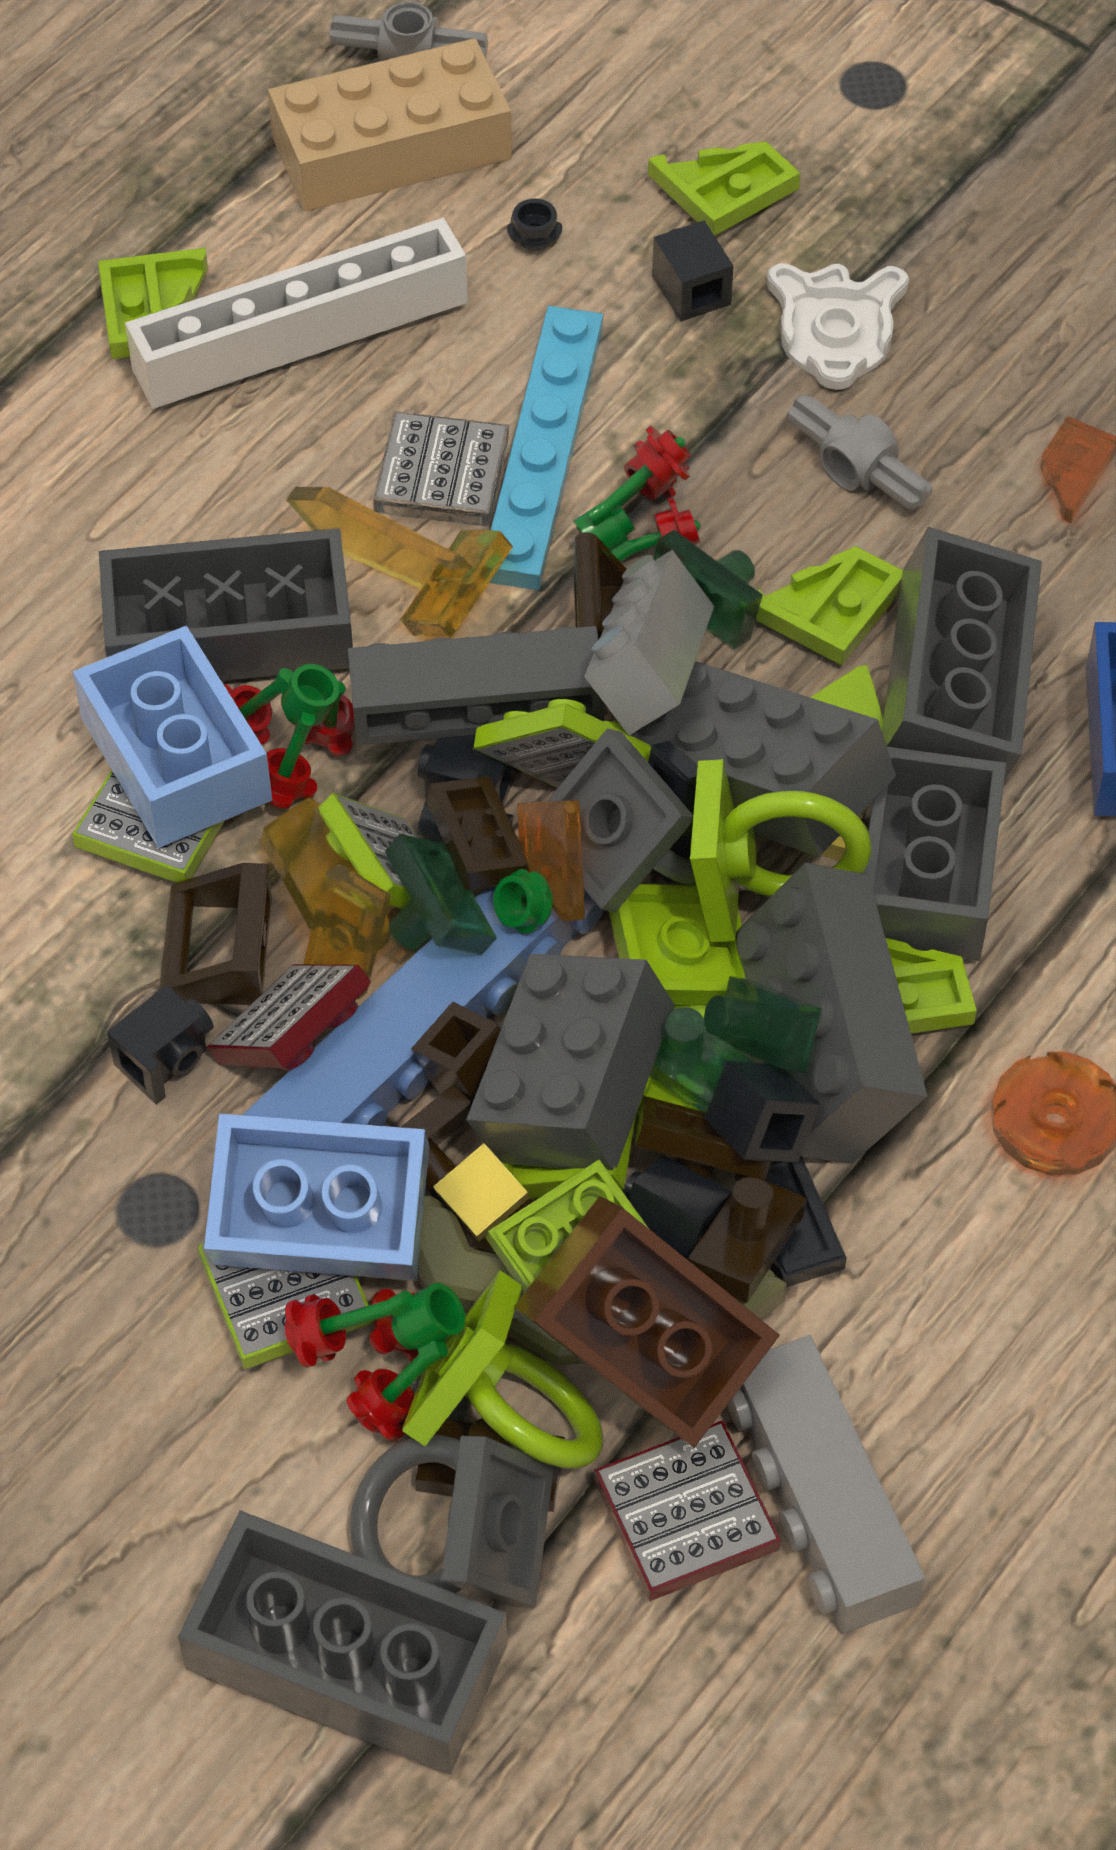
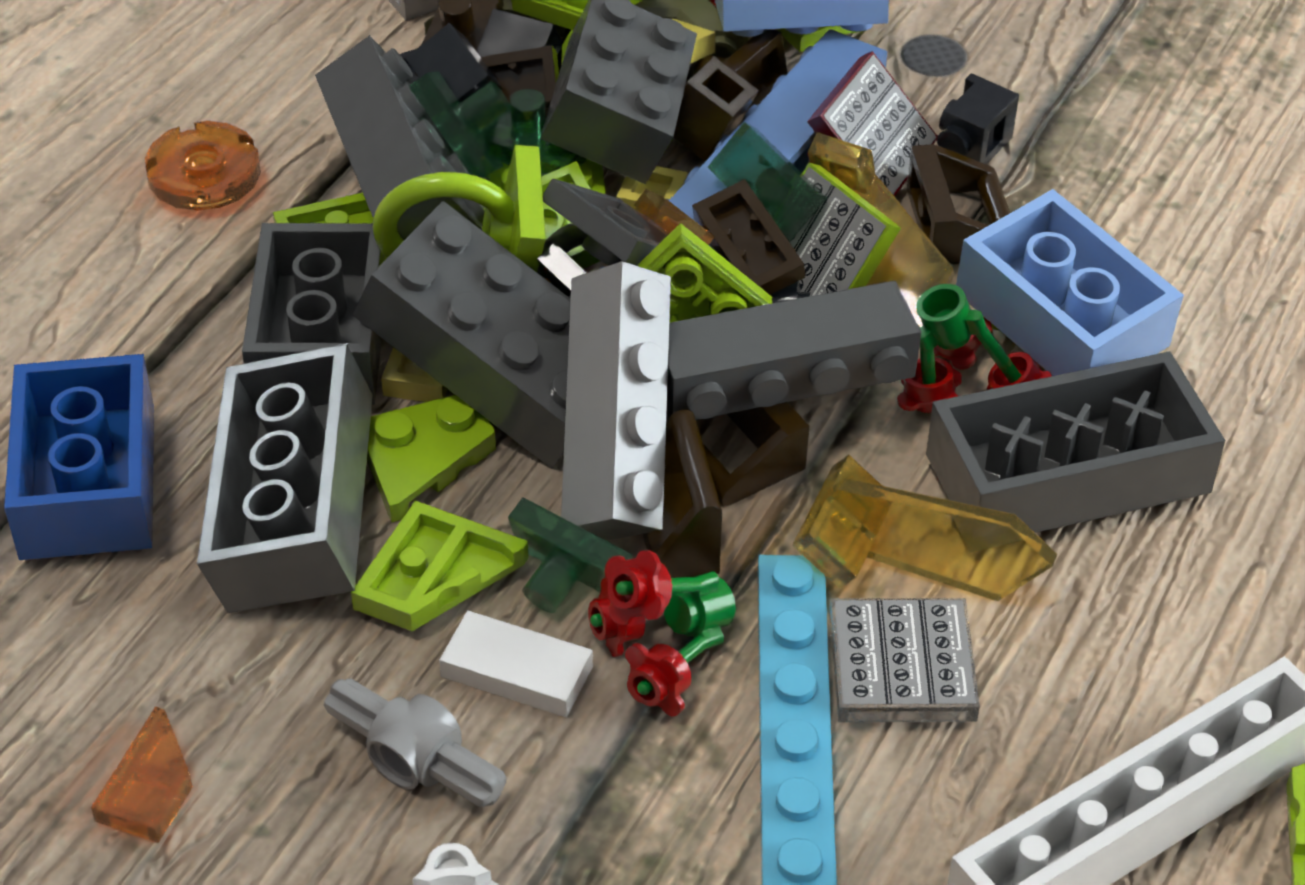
camera: 170 degrees right, 10 degrees down
(523, 900) = (687, 187): green plate -> none
(766, 522) = (516, 663): none -> white tile

